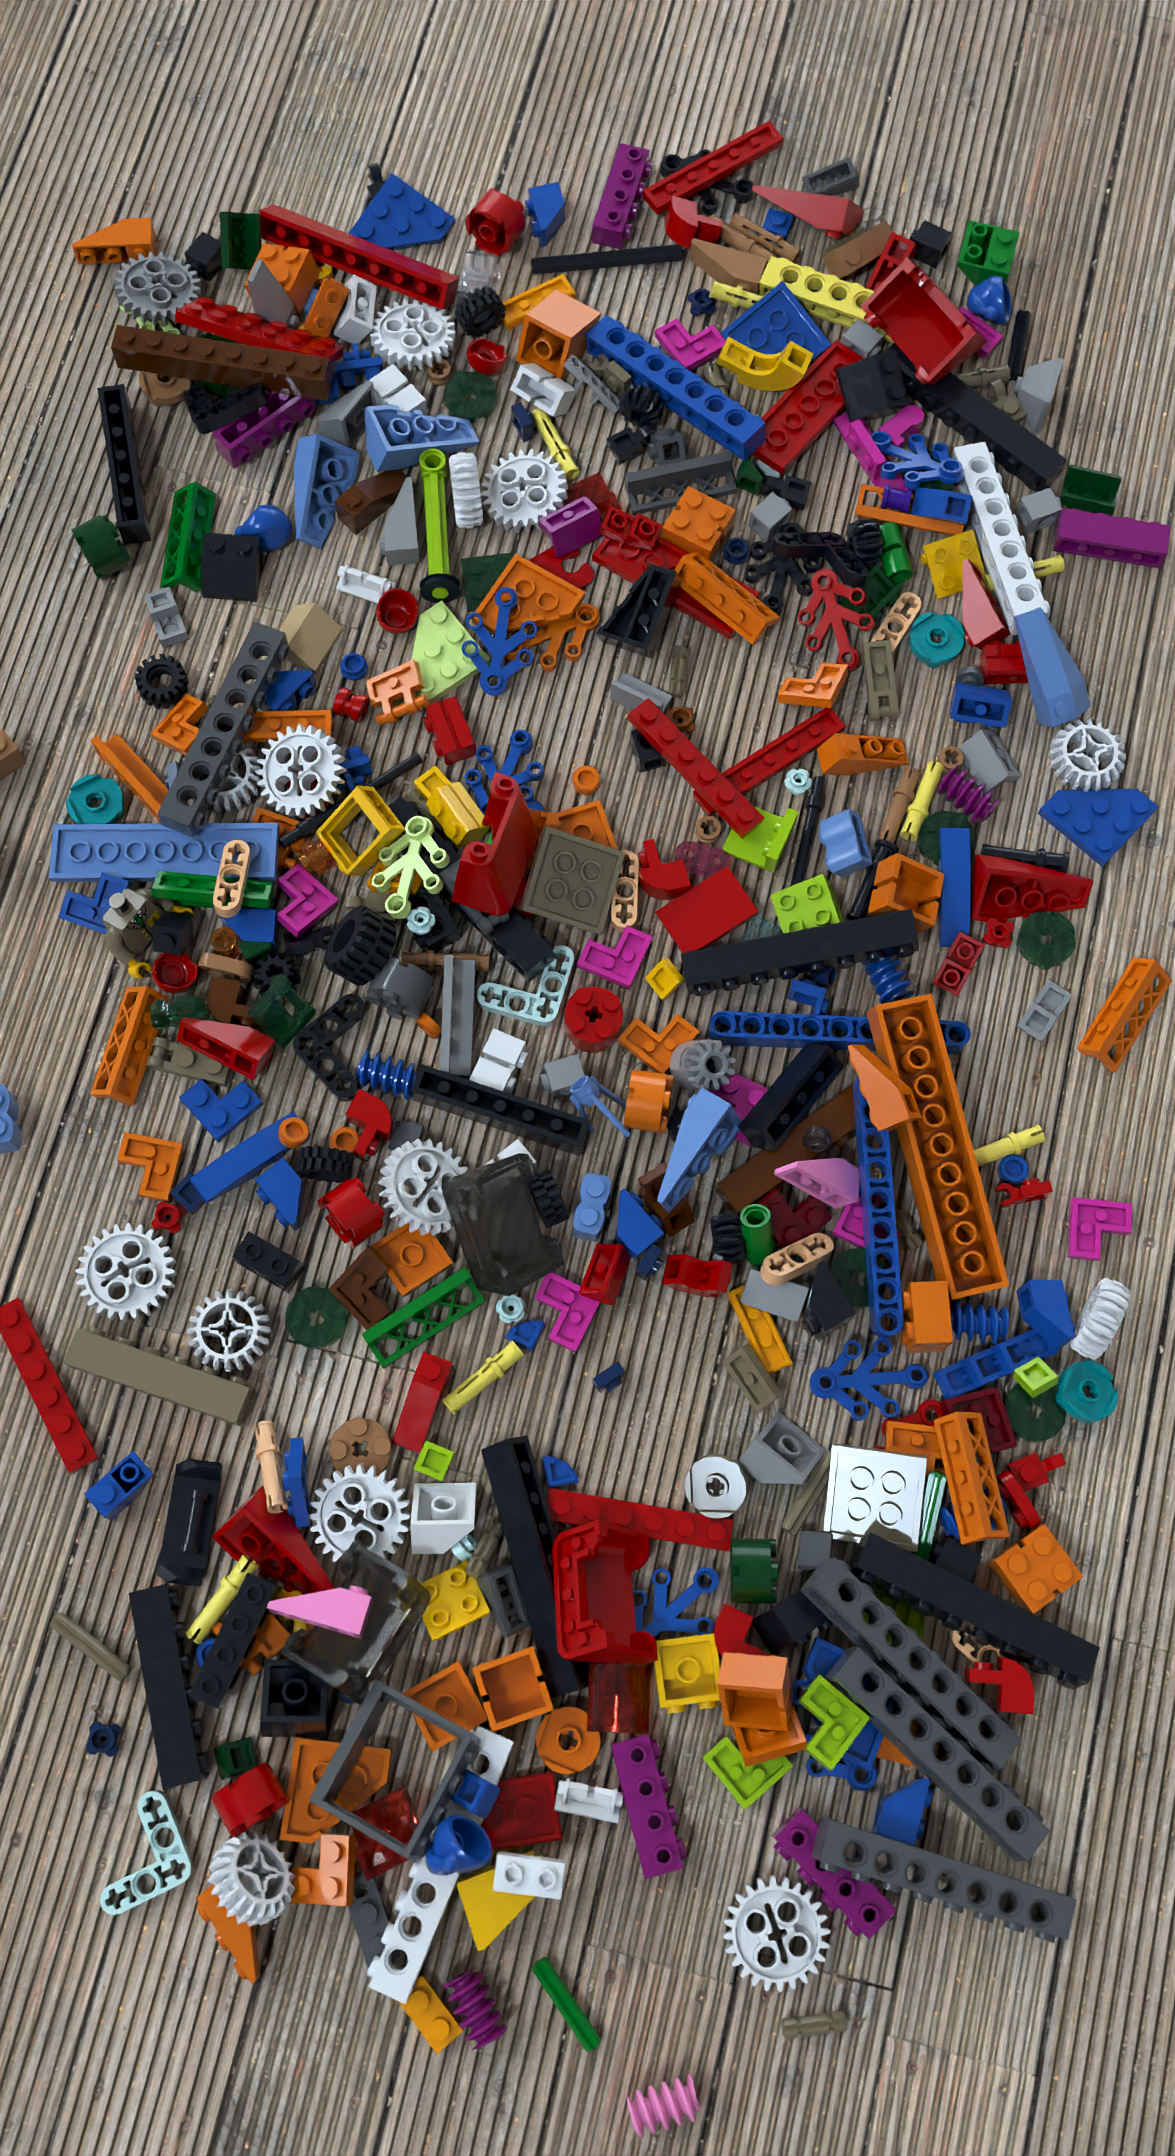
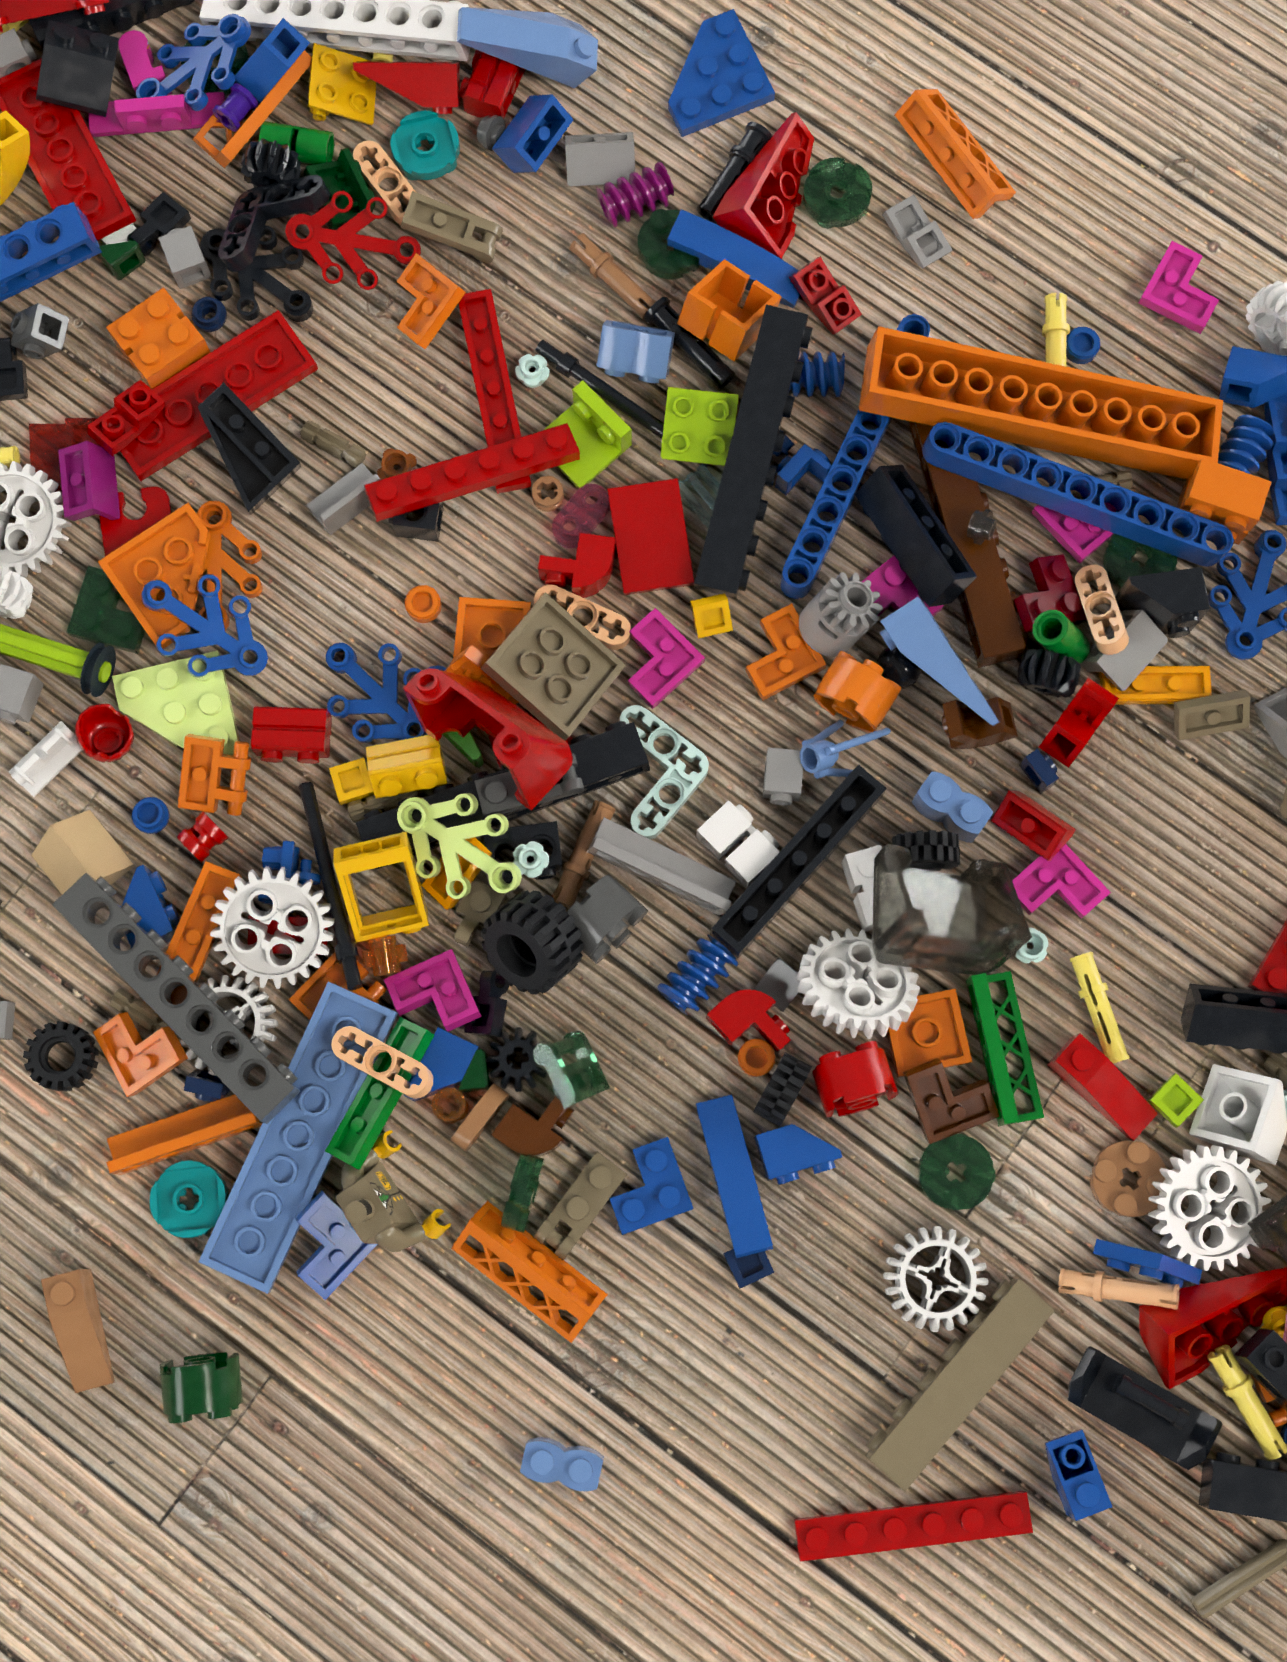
camera: 65 degrees left, 5 degrees up
(115, 1248) = (851, 1371): white gear -> none
(160, 1160) = (690, 1285): orange plate -> none
(162, 1211) = (776, 1301): red plate -> none
(173, 933) = (412, 1163): black brick -> none
(174, 973) = (462, 1180): red hair -> none
(229, 1044) = (589, 1143): red slope -> none
(268, 1262) = (872, 1201): black brick -> none
(293, 1132) = (726, 1112): orange tile -> none
(322, 1041) = (619, 1037): black beam -> none
(429, 1026) = (658, 904): orange tile -> none
(526, 1334) = (1064, 940): blue tile -> none
(558, 1472) = (1235, 968): blue tile -> none
(591, 1003) = (725, 694): red brick -> none
(610, 1378) = (1154, 868): dark blue plate -> none
(635, 1227) = (991, 770): blue slope -> none
(676, 475) = (77, 336): dark grey fence -> none
(724, 597) = (269, 348): orange fence -> none
(828, 1180) = (1027, 538): bright pink slope -> none
(859, 754) = (531, 288): orange slope -> none
(888, 1097) = (978, 423): orange slope -> none
(919, 808) = (628, 257): light yellow pin -> none
(950, 751) = (587, 192): medium nougat bush -> none
(995, 940) = (804, 247): red plate -> none
(1029, 1191) = (1116, 335): red plate -> none
(1092, 742) = (658, 65): white gear -> none

